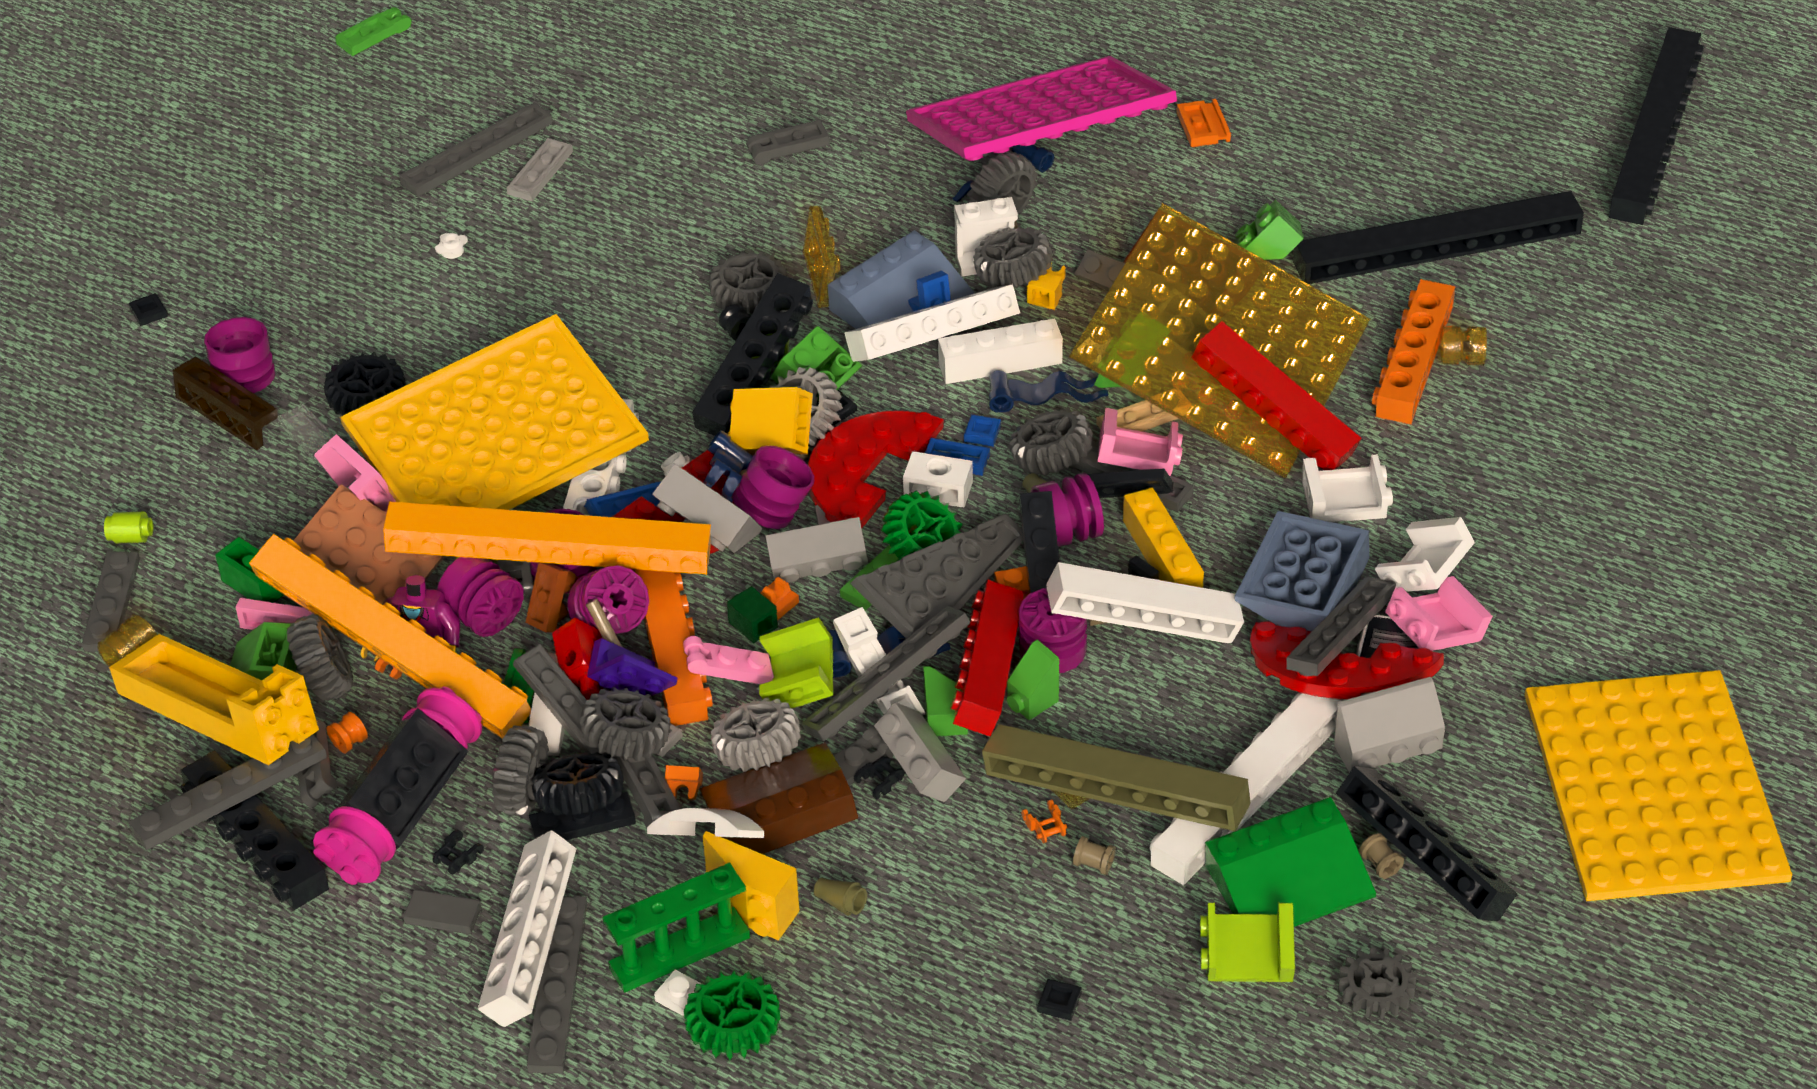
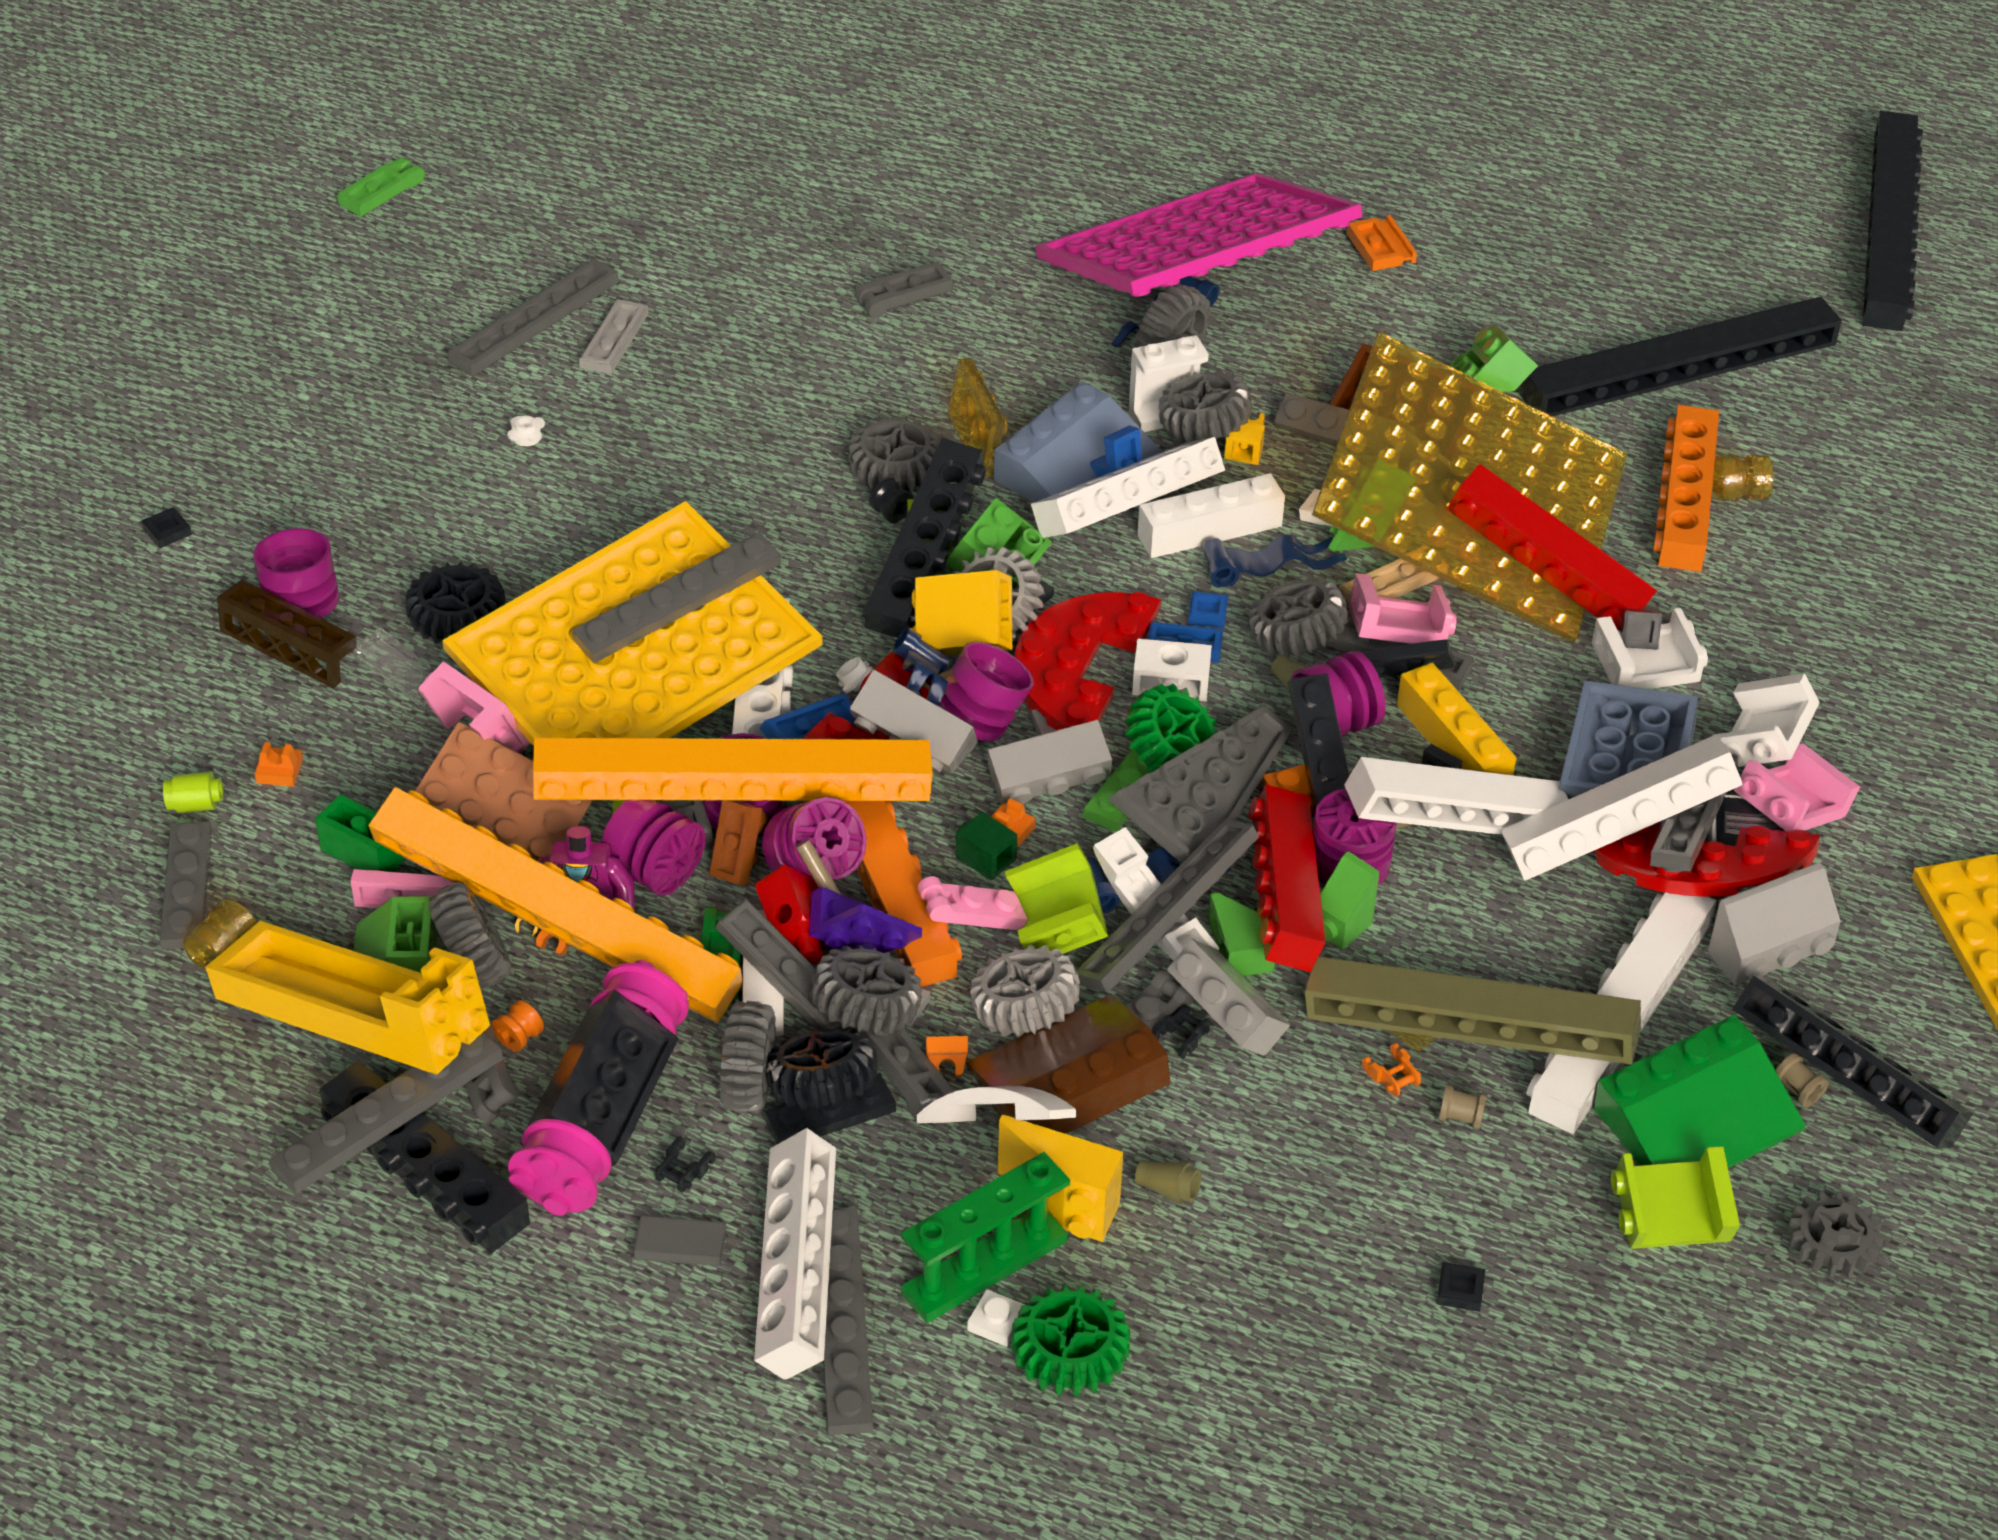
camera: 10 degrees left, 0 degrees up
(200, 509) = (278, 765): none -> orange tile
(533, 393) = (676, 597): none -> dark grey plate
(1277, 619) = (1621, 807): none -> white brick
(1340, 470) = (1641, 628): none -> tile

